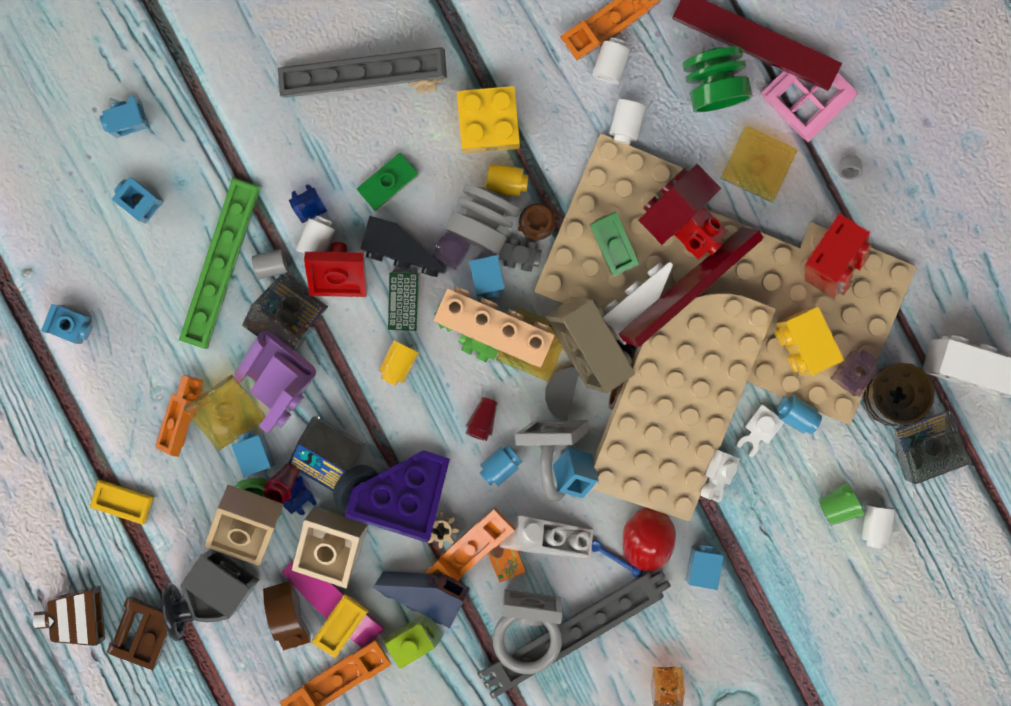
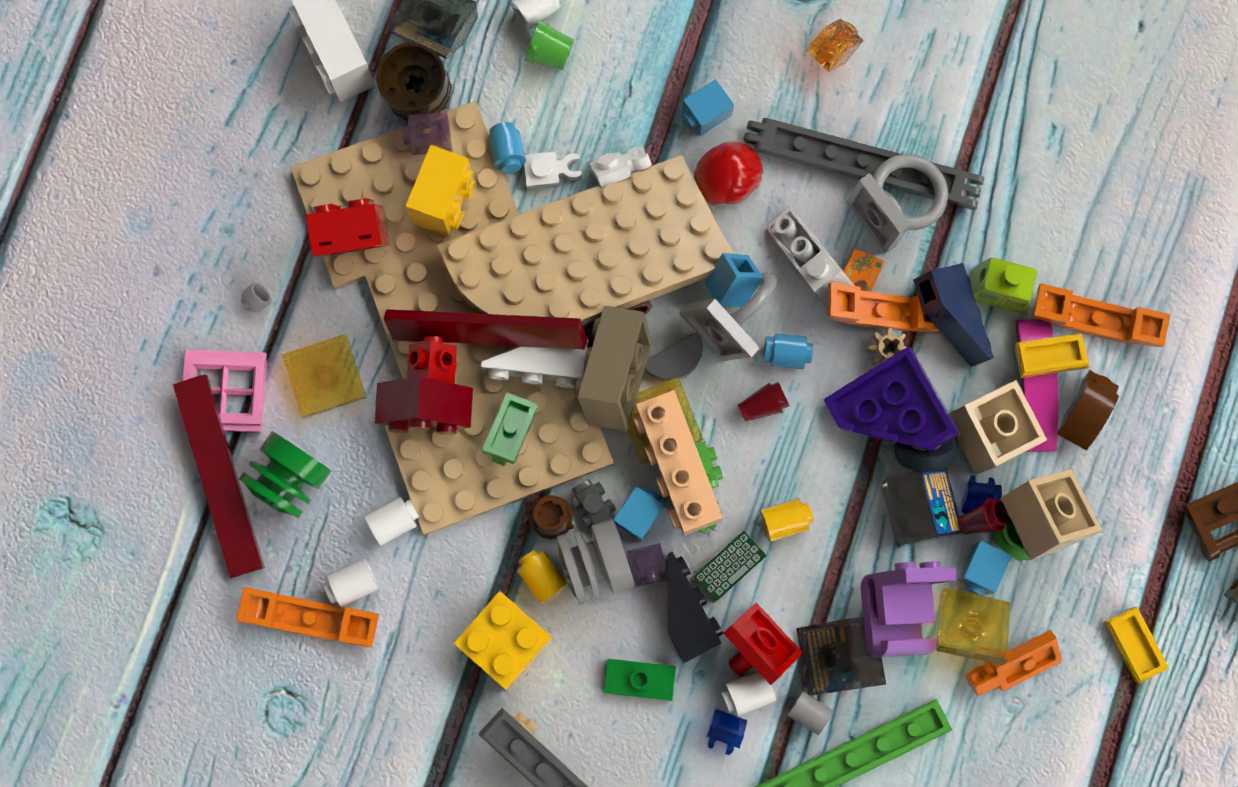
camera: 135 degrees left, 10 degrees down
(211, 592) = (1131, 487): dark grey piece -> none
(596, 546) = (776, 210): blue hinge -> none

